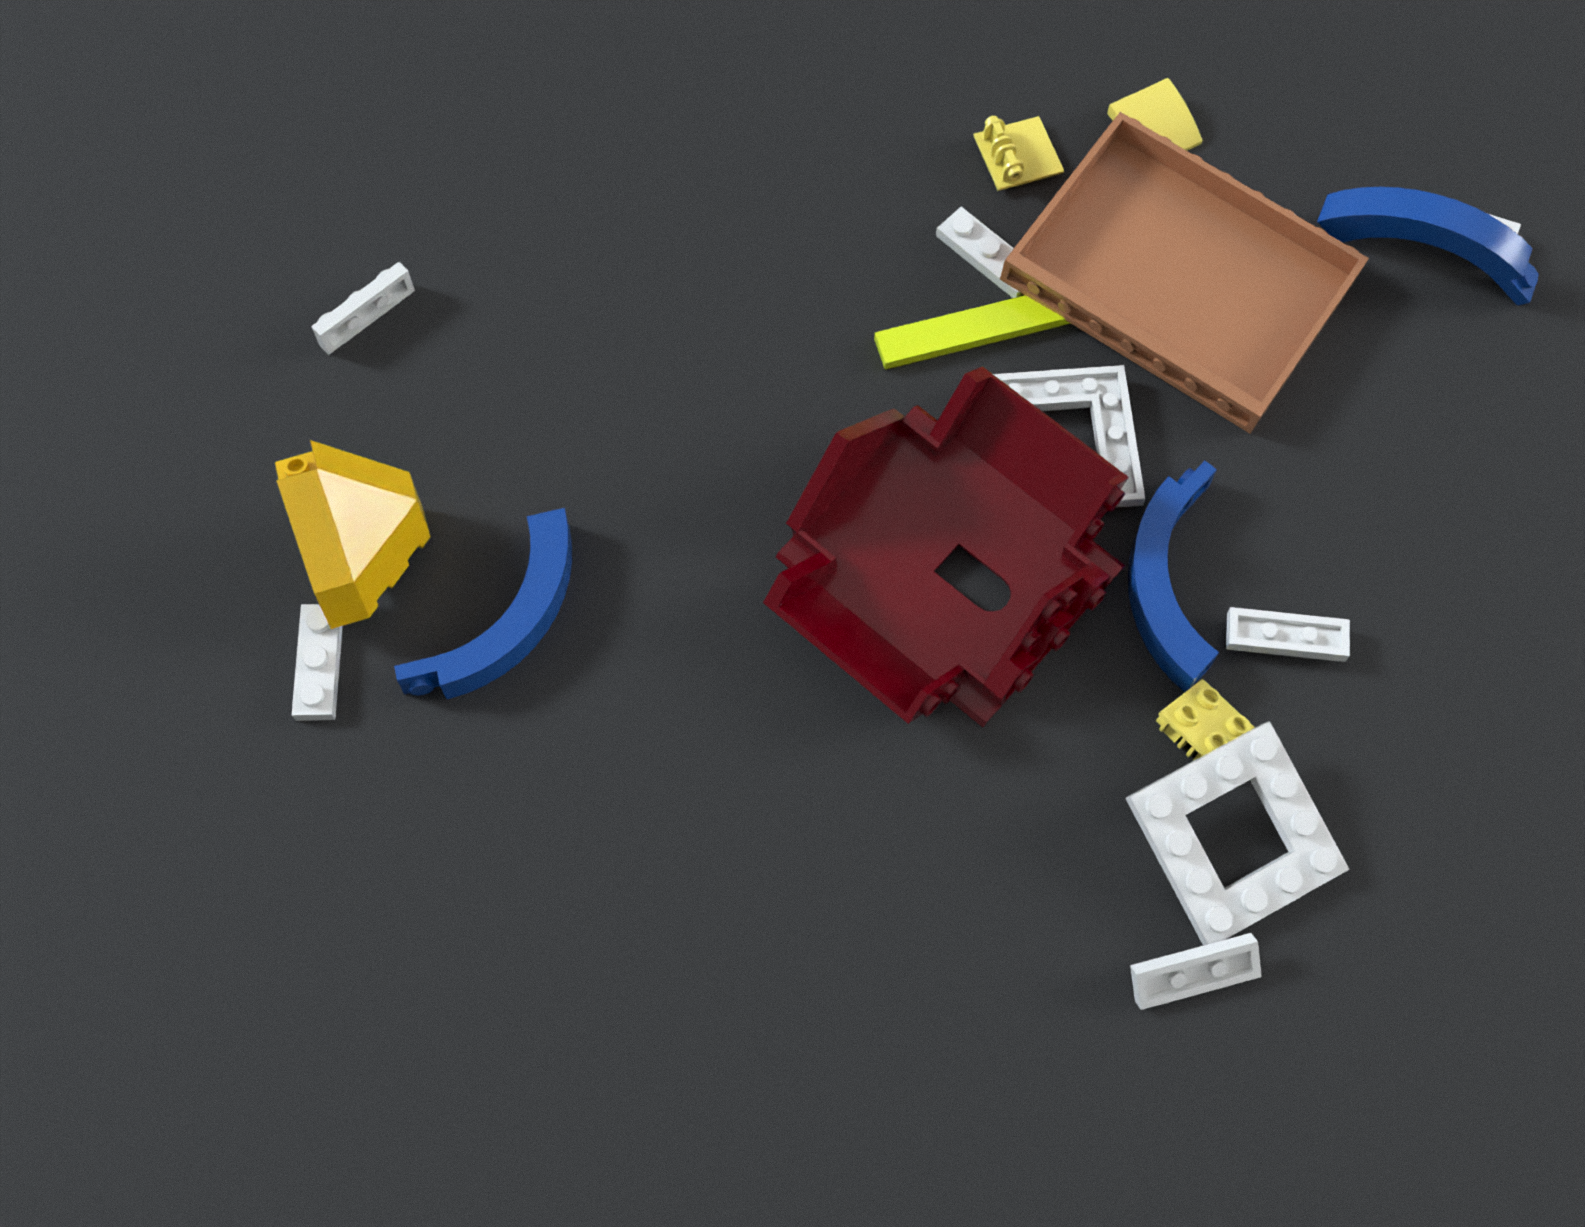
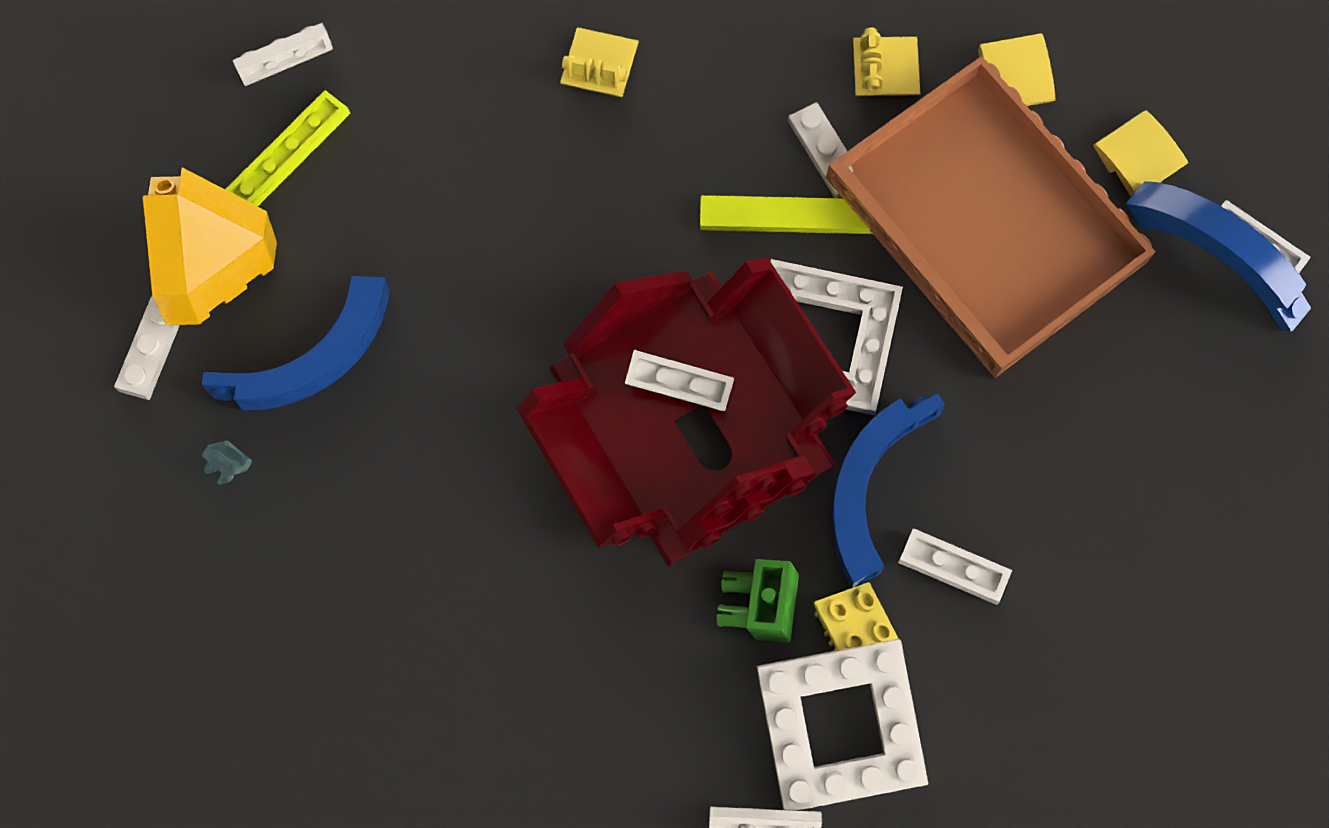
camera: 20 degrees right, 5 degrees up
(407, 400) = (289, 149): none -> neon yellow tile
(449, 754) = (226, 459): none -> clear light blue tile
(714, 227) = (599, 62): none -> light yellow hinge
(929, 523) = (679, 380): none -> white plate
(1111, 718) = (771, 600): none -> bright green brick
(1310, 169) = (1140, 152): none -> light yellow slope

